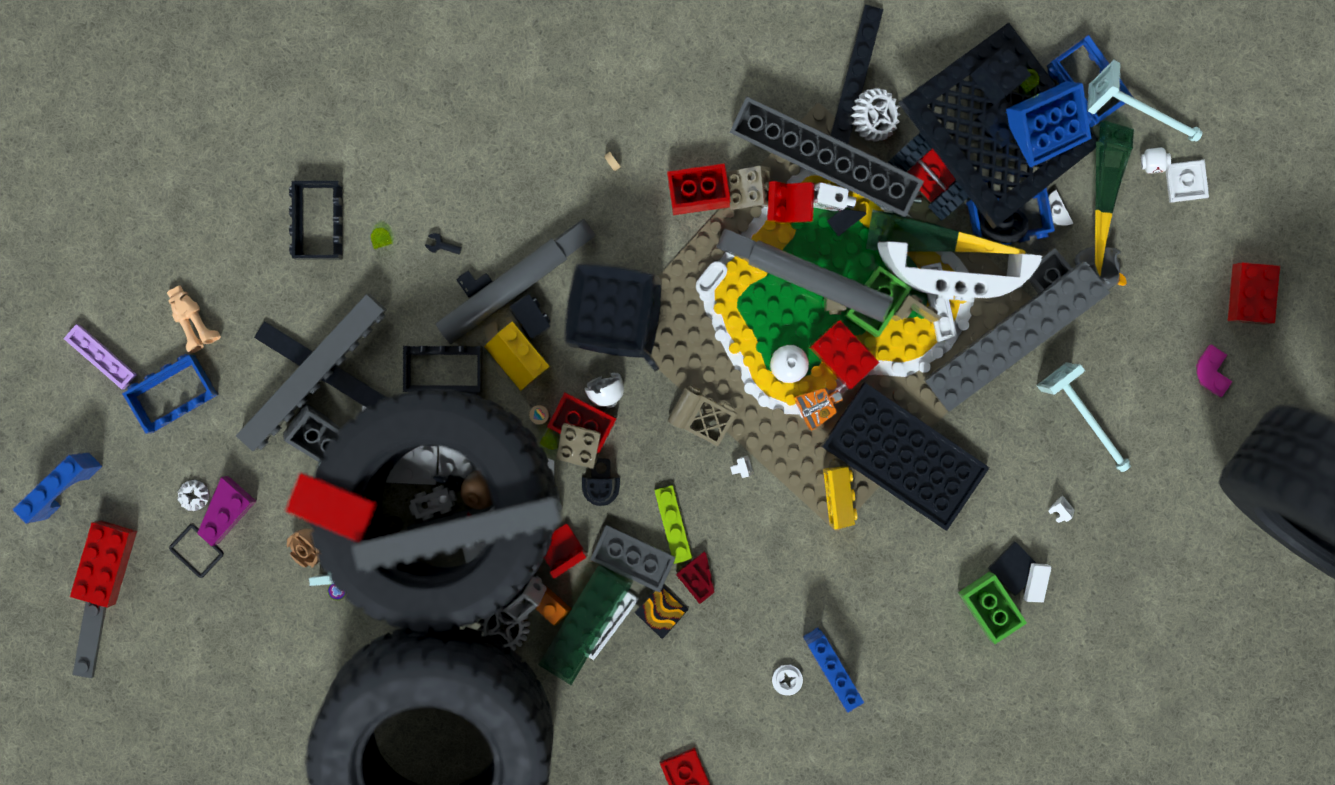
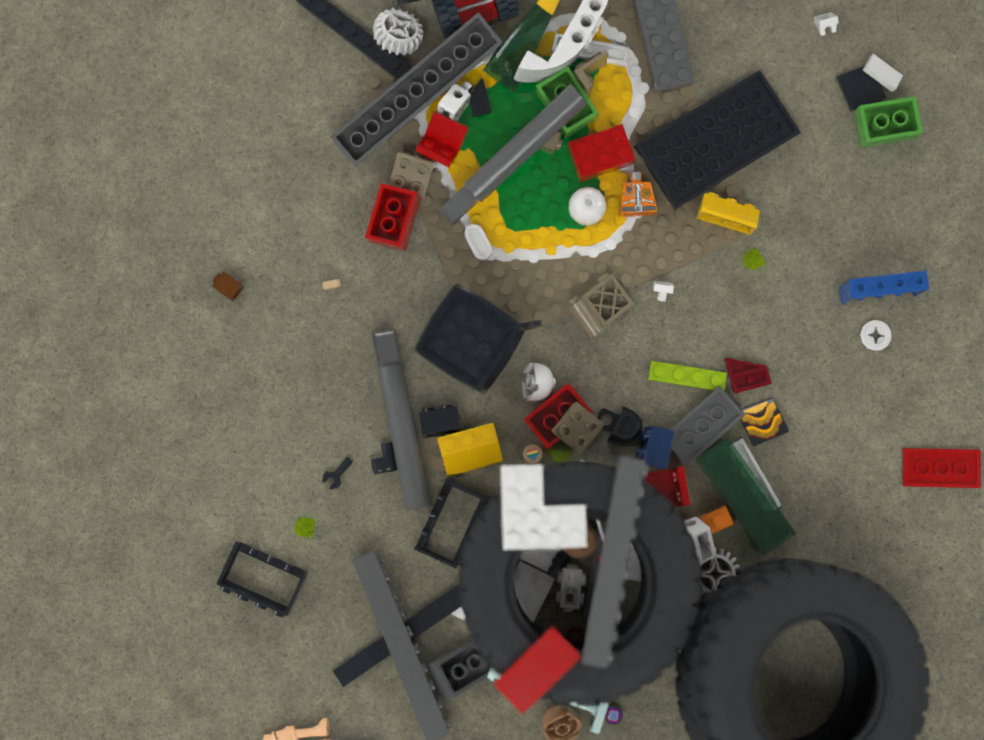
camera: 65 degrees left, 5 degrees down
(460, 440) = (529, 522): none -> white plate
(567, 65) = (227, 286): none -> reddish brown brick
(592, 523) = (655, 446): none -> dark blue slope
(807, 538) = (753, 260): none -> clear neon green tile

